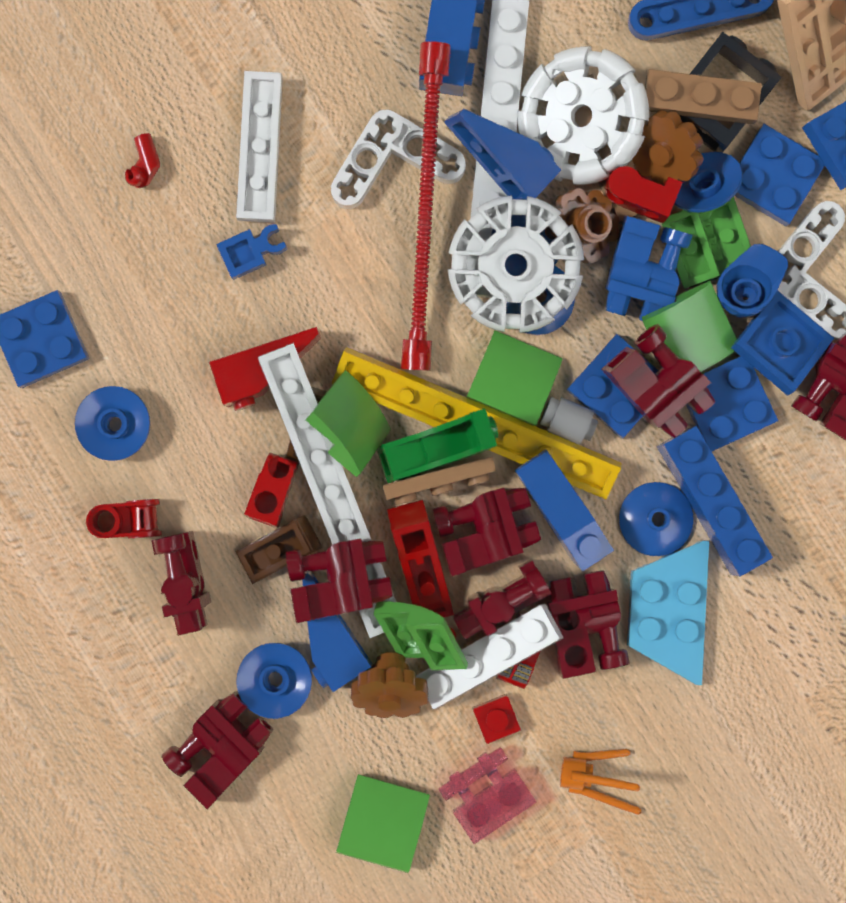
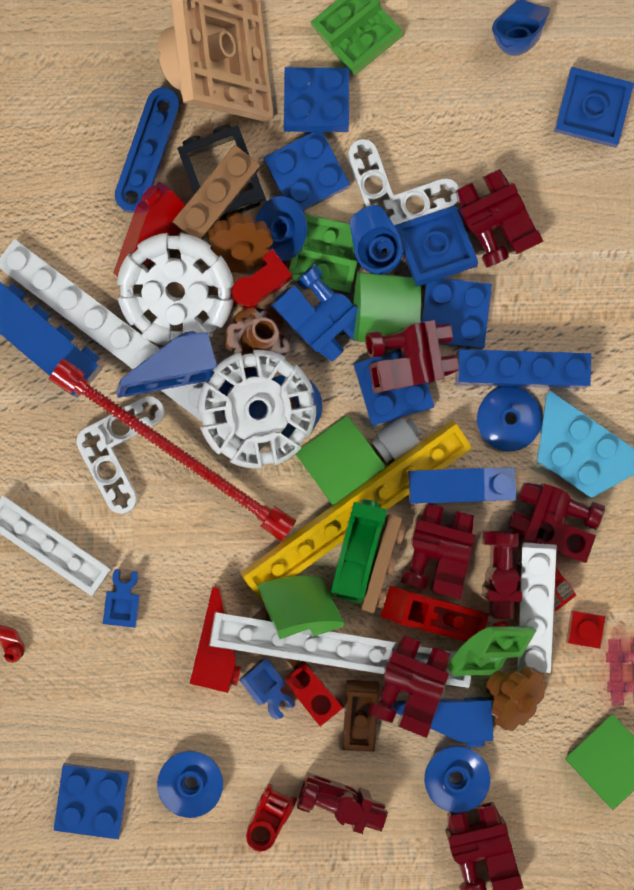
camera: 60 degrees left, 0 degrees up
(251, 437) = (264, 686): none -> blue plate
(641, 49) = (151, 217): none -> red slope

